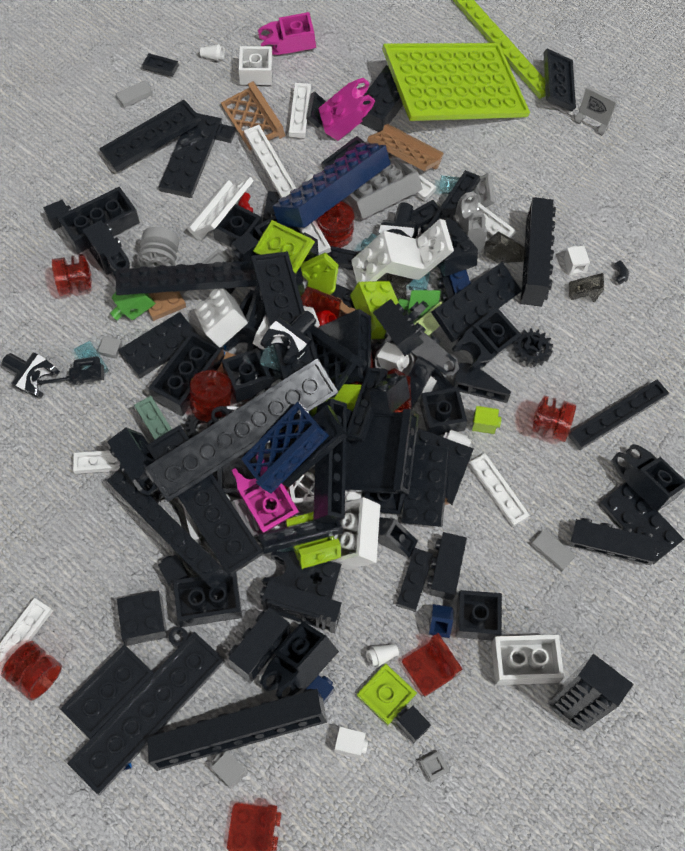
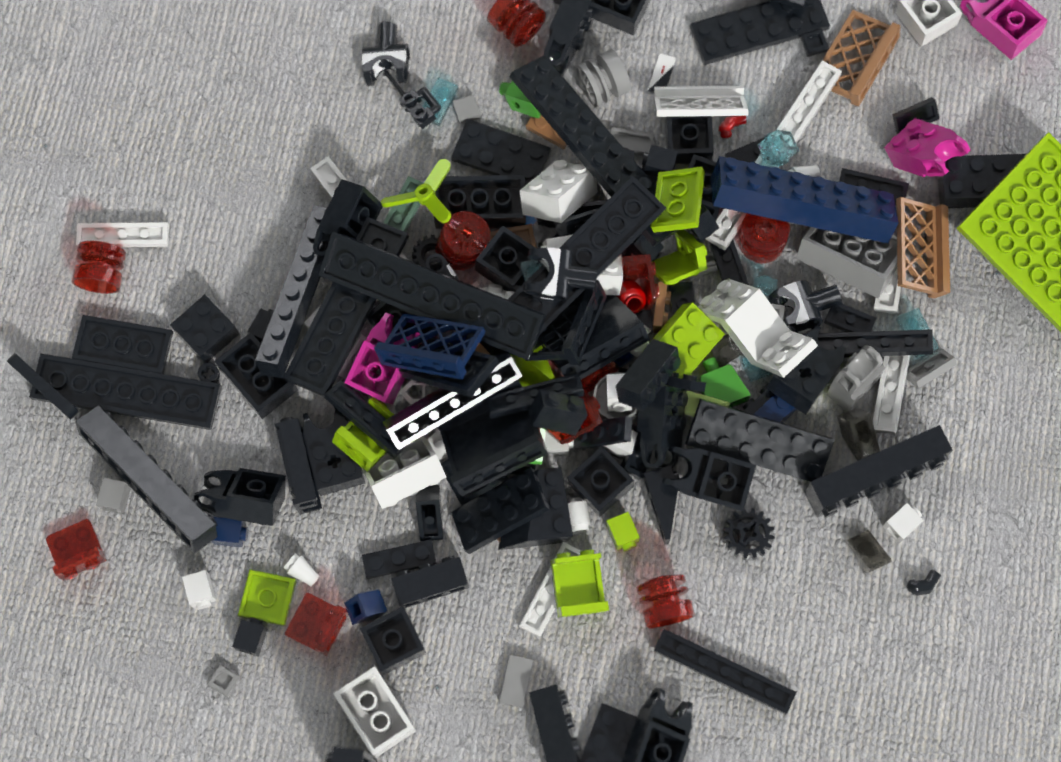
camera: 65 degrees right, 10 degrees up
(98, 775) = (42, 386): none -> black beam
(159, 398) = (426, 193): none -> lime piece
(177, 222) = (662, 72): none -> white sticker
(259, 644) = (237, 449): black brick -> none
(289, 173) = (778, 147): none -> clear light blue brick
(299, 111) = (911, 94): white plate -> none
(508, 468) = (578, 584): none -> lime panel

